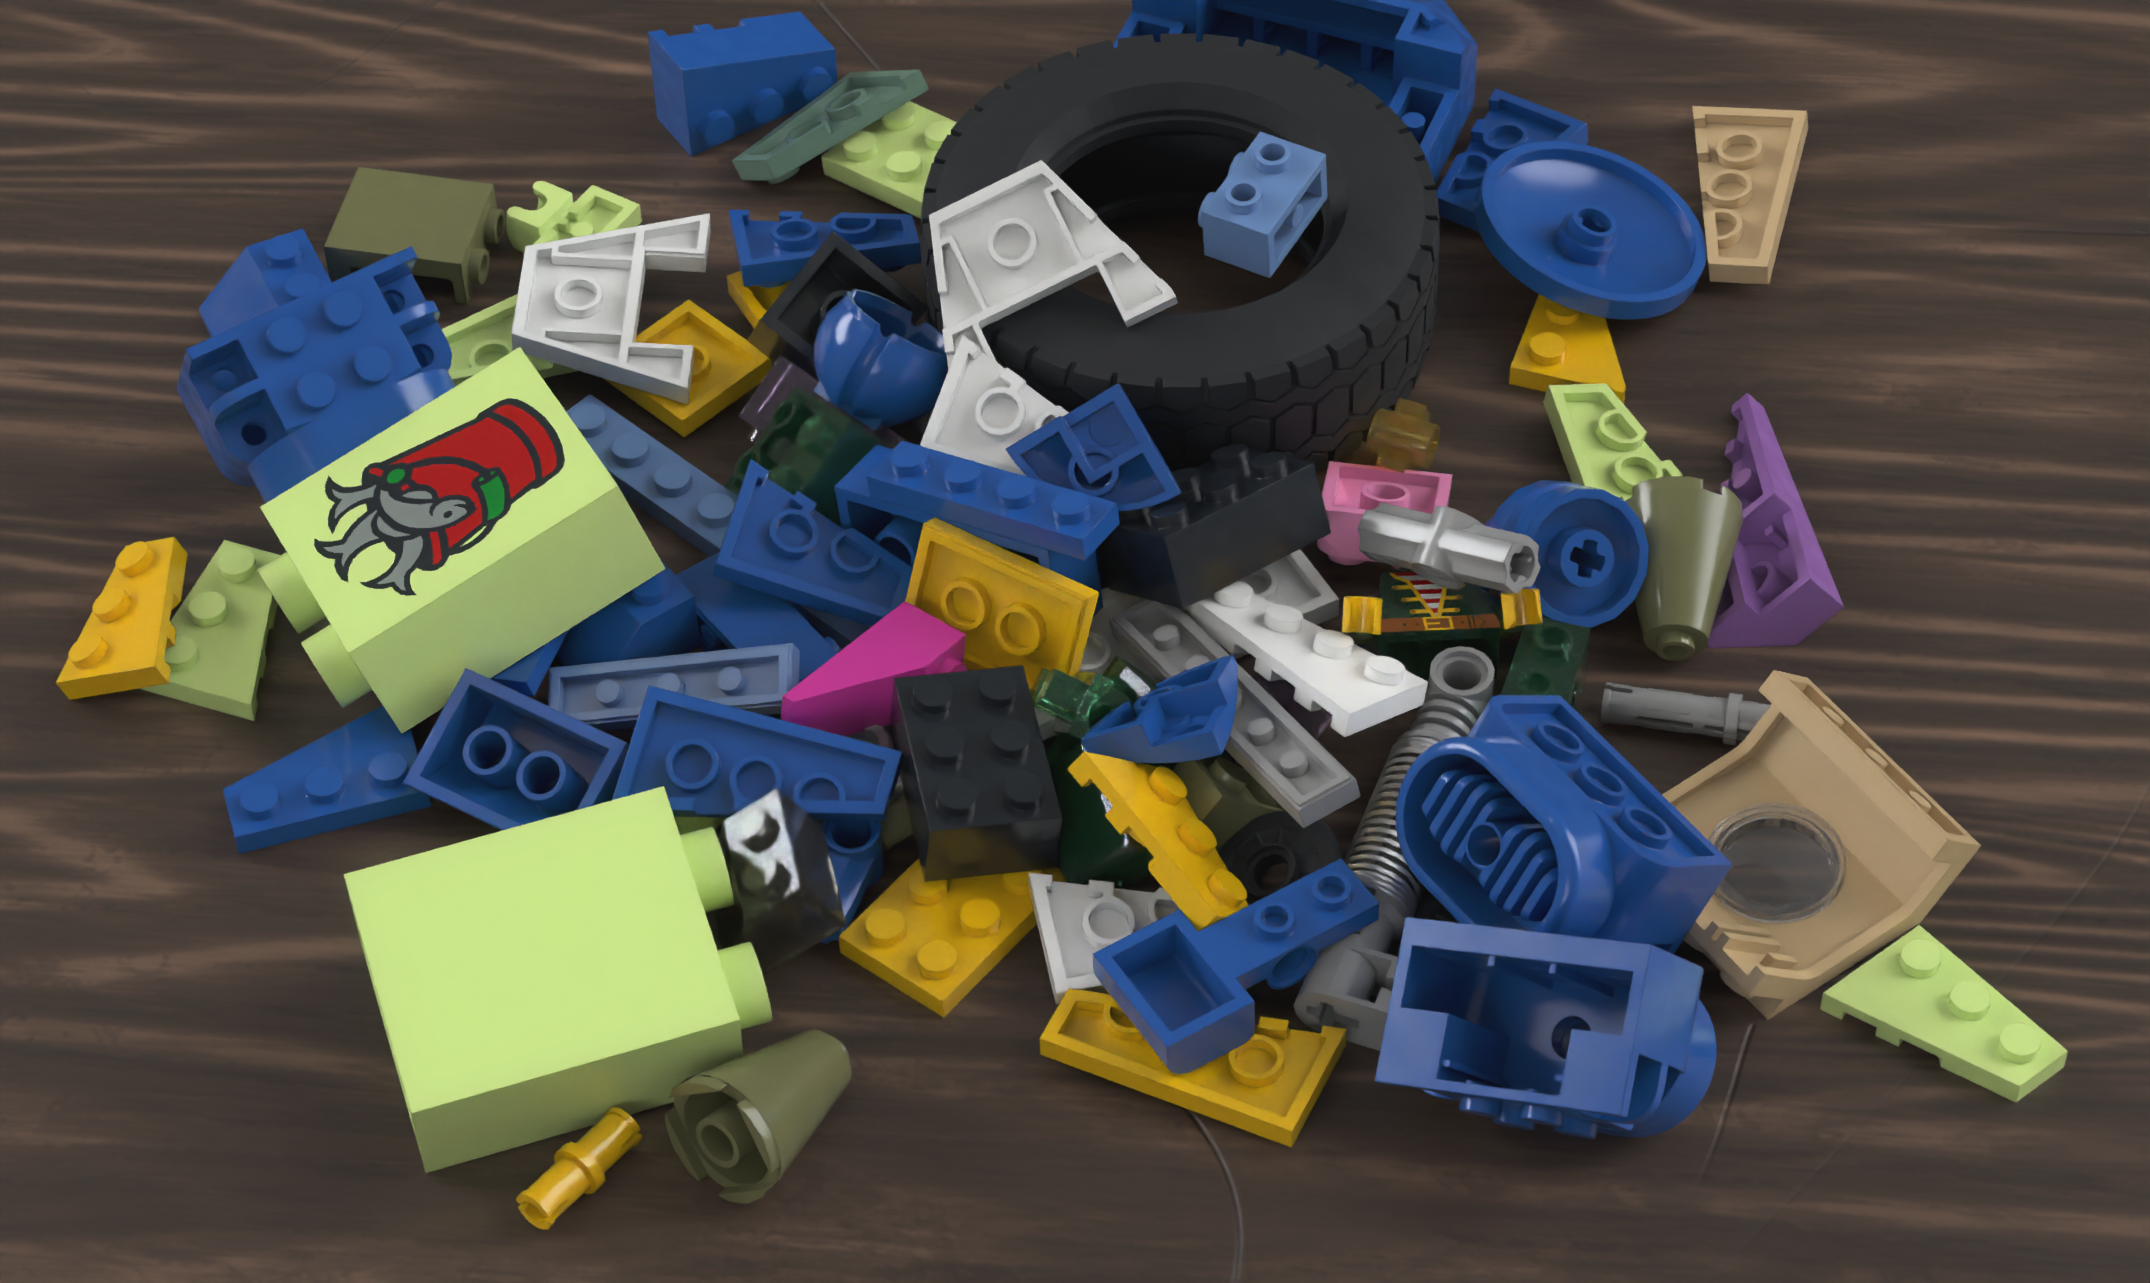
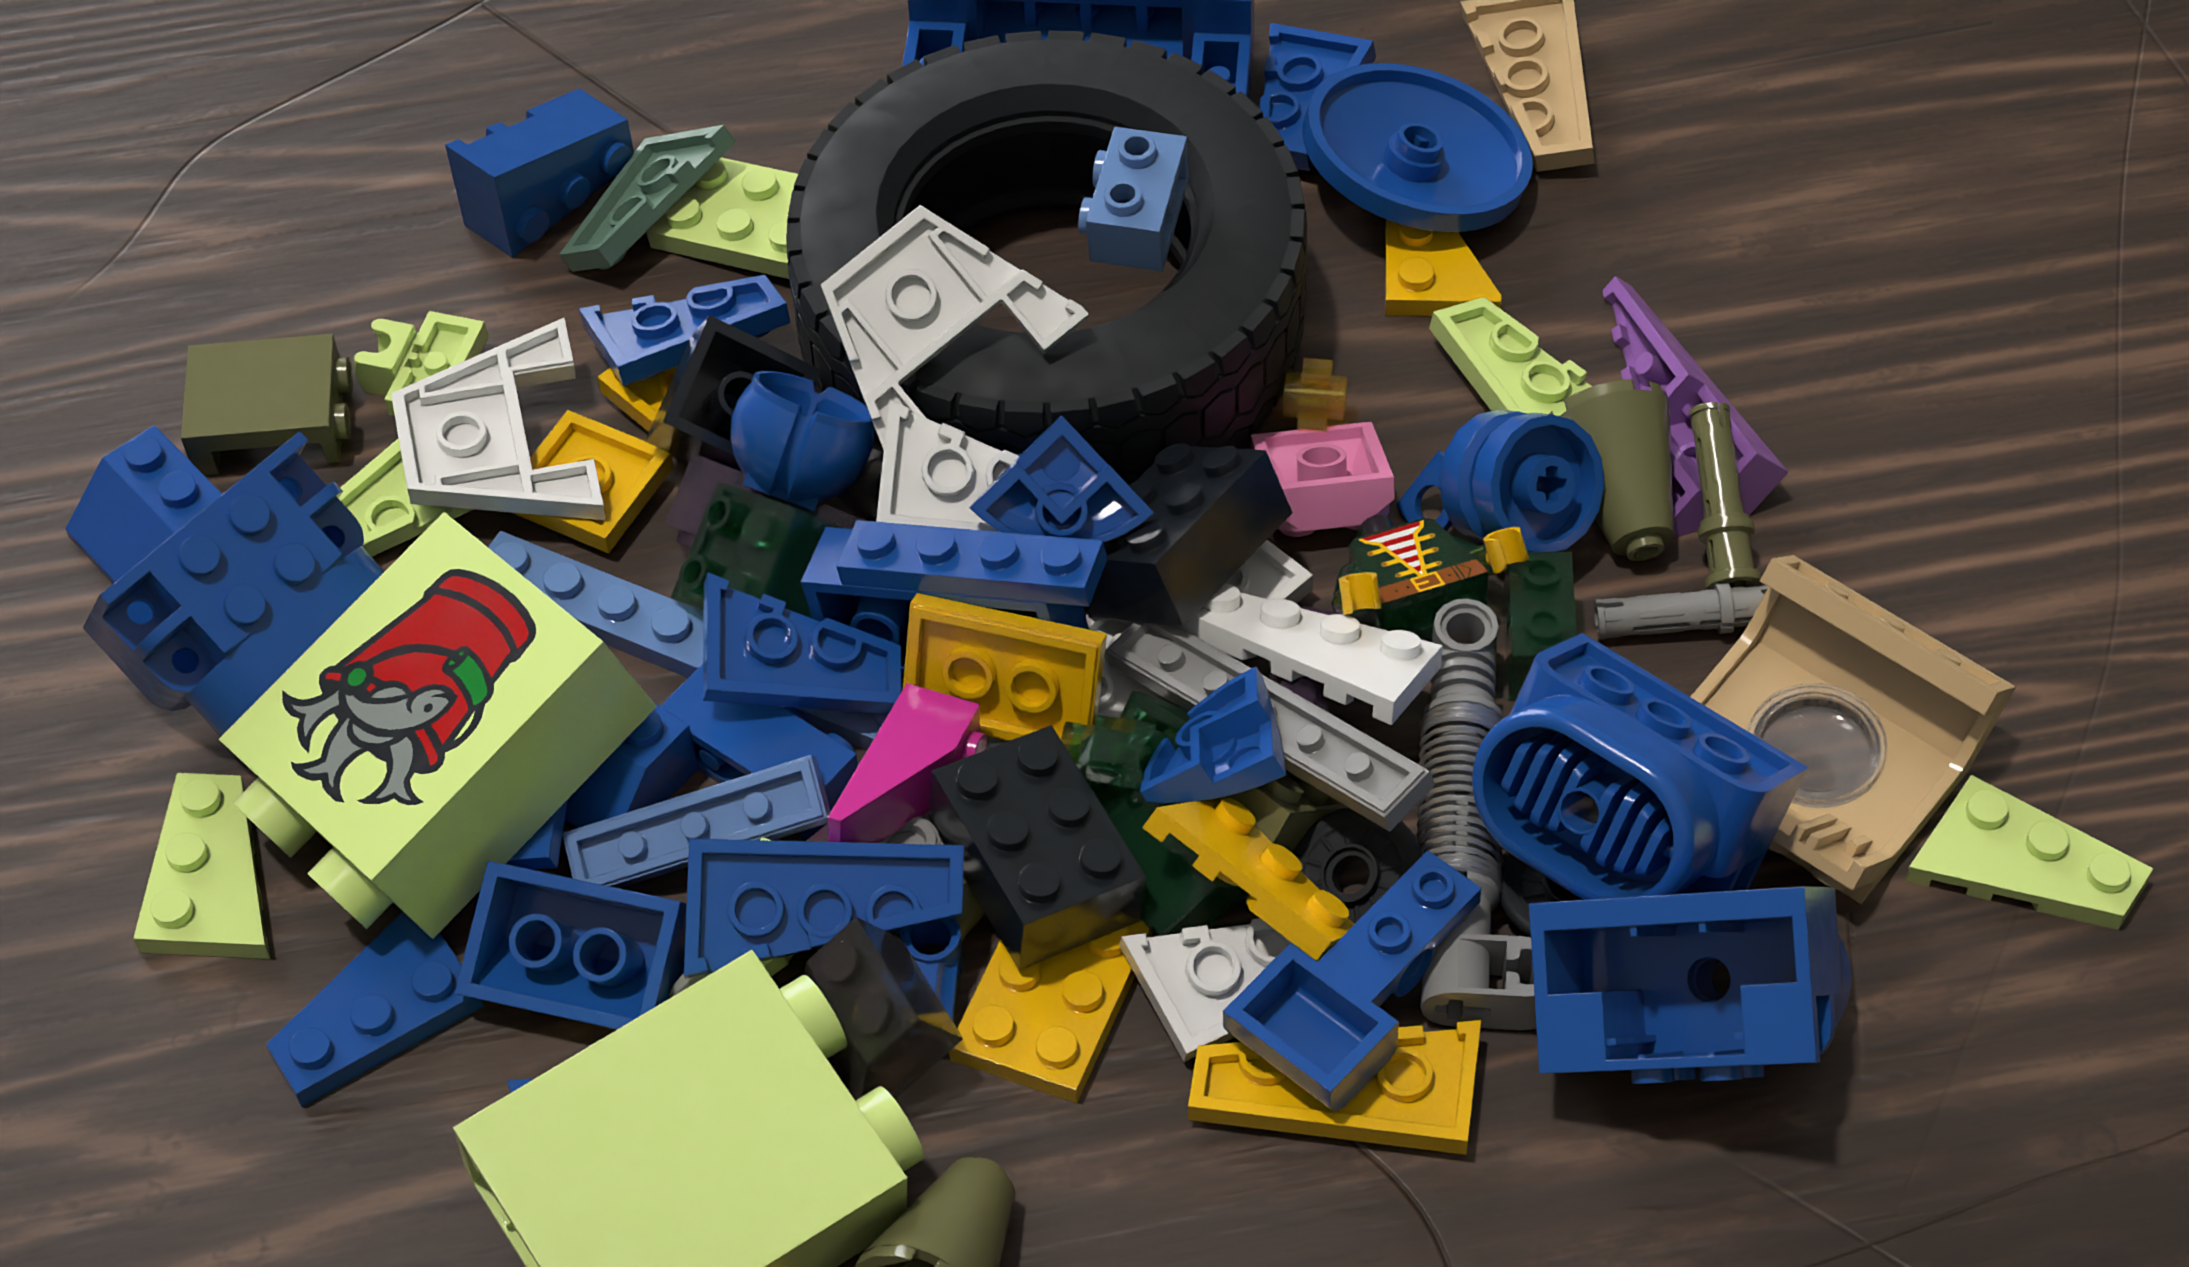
camera: 15 degrees left, 5 degrees up
(129, 624) = (109, 888): yellow wing -> none
(1449, 548) = (1418, 504): light grey piece -> none
(1759, 642) = (1725, 525): none -> olive pin

